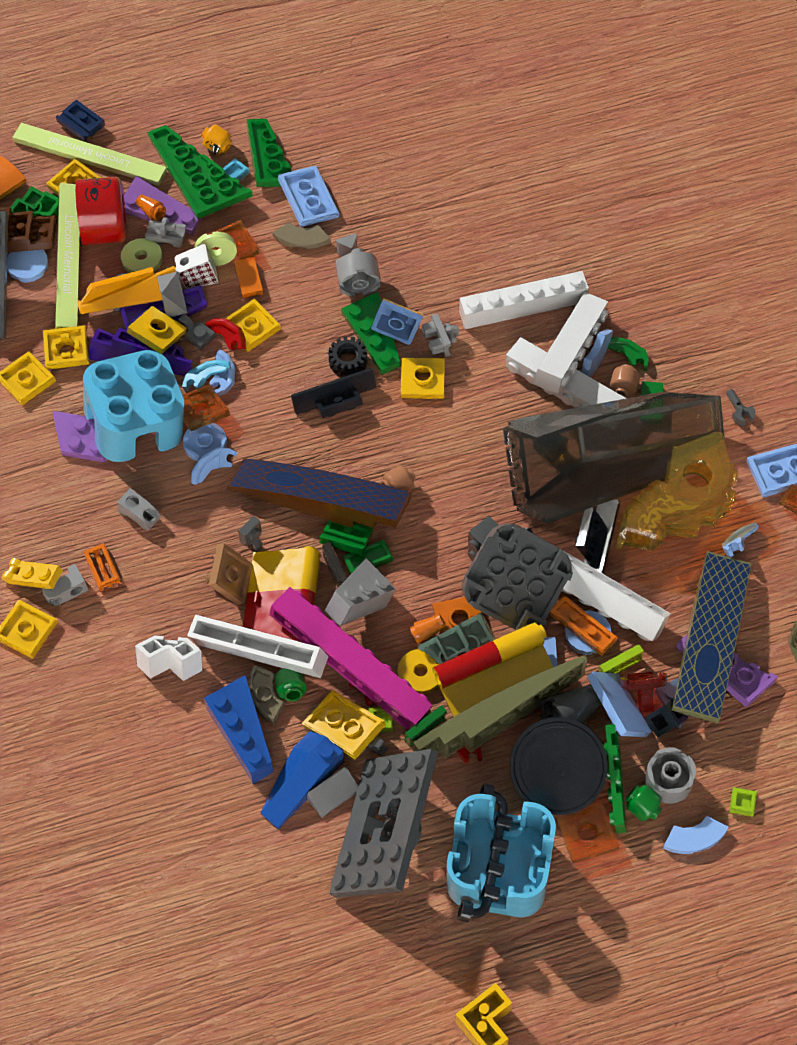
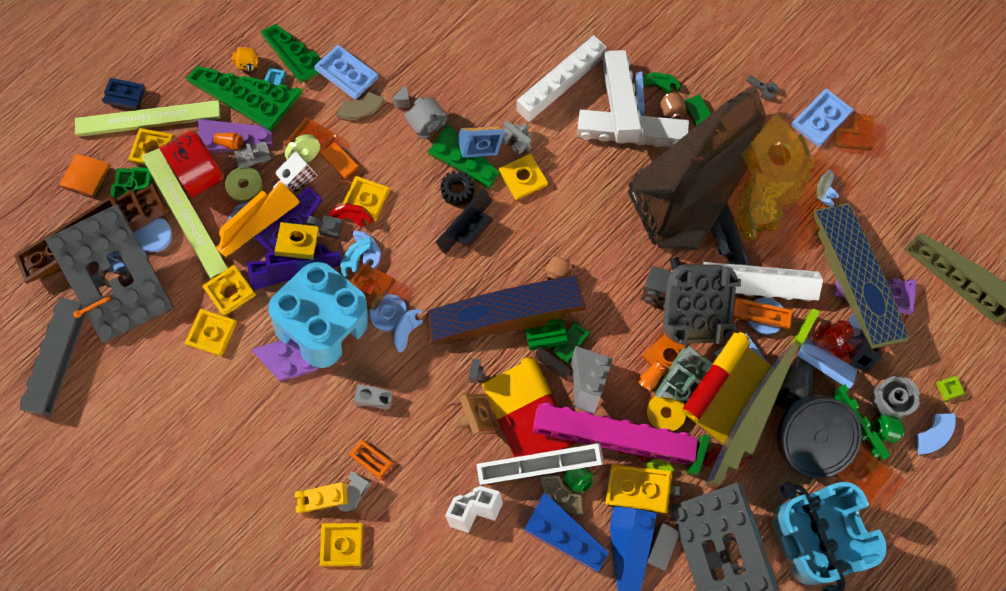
camera: 30 degrees left, 10 degrees up
(172, 294) = (291, 205): light grey slope -> none

